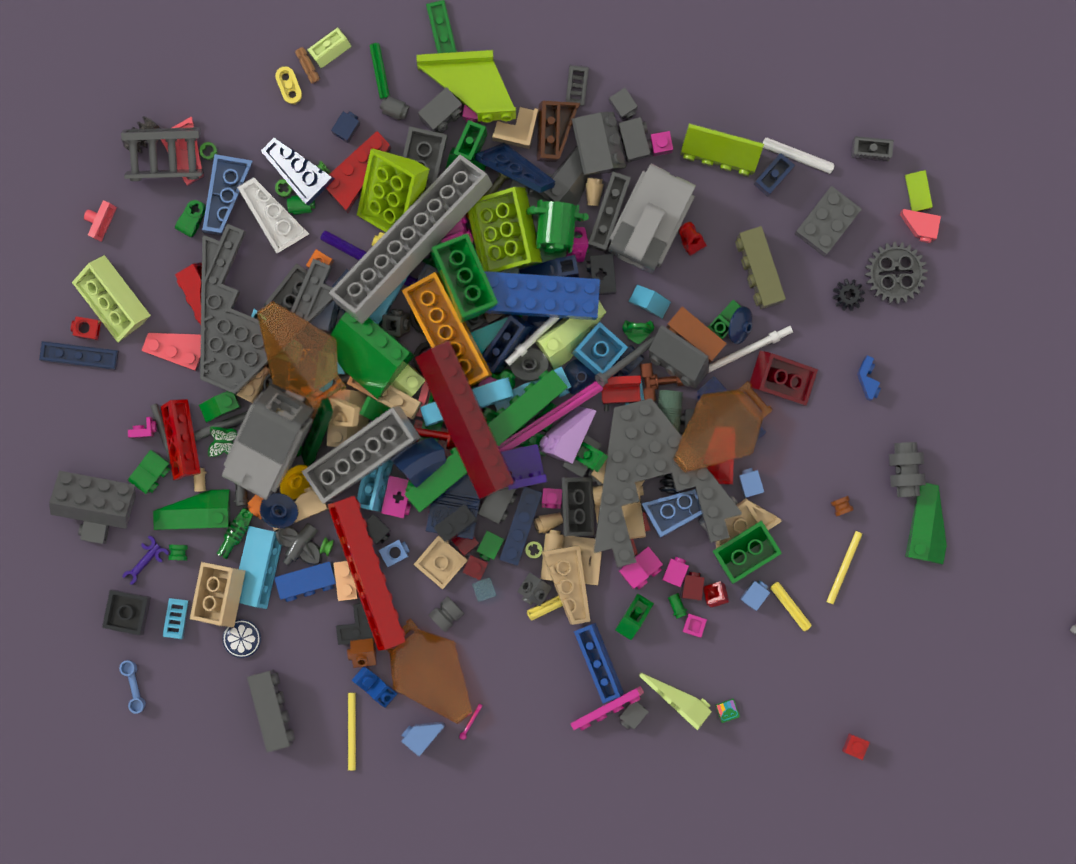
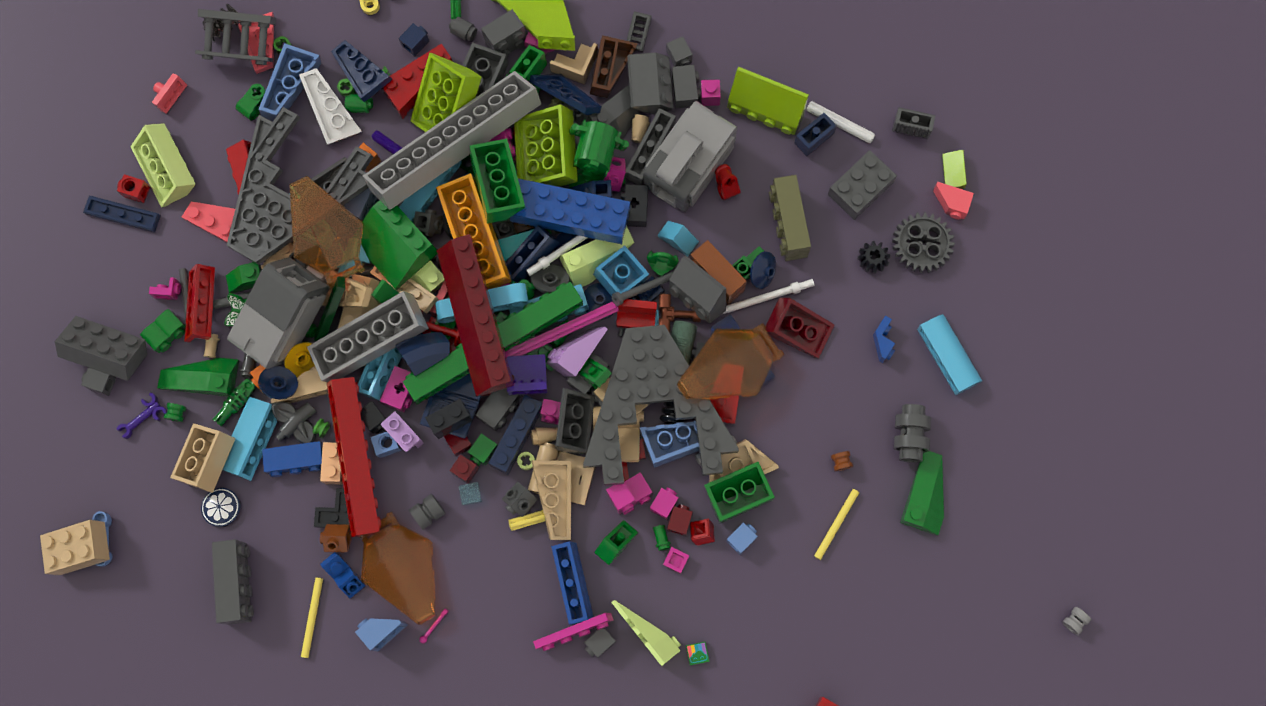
camera: 15 degrees right, 10 degrees down
(110, 699) = (74, 547): none -> tan brick
(126, 612) = (111, 463): black brick -> none
(179, 635) = (150, 482): medium azure slope -> none
(407, 541) = (401, 432): none -> lavender bracket
(440, 562) = (430, 459): tan plate -> none
(750, 482) = (752, 425): medium blue brick -> none
(791, 607) = (777, 555): light yellow axle -> none
(935, 383) = (949, 354): none -> medium azure brick

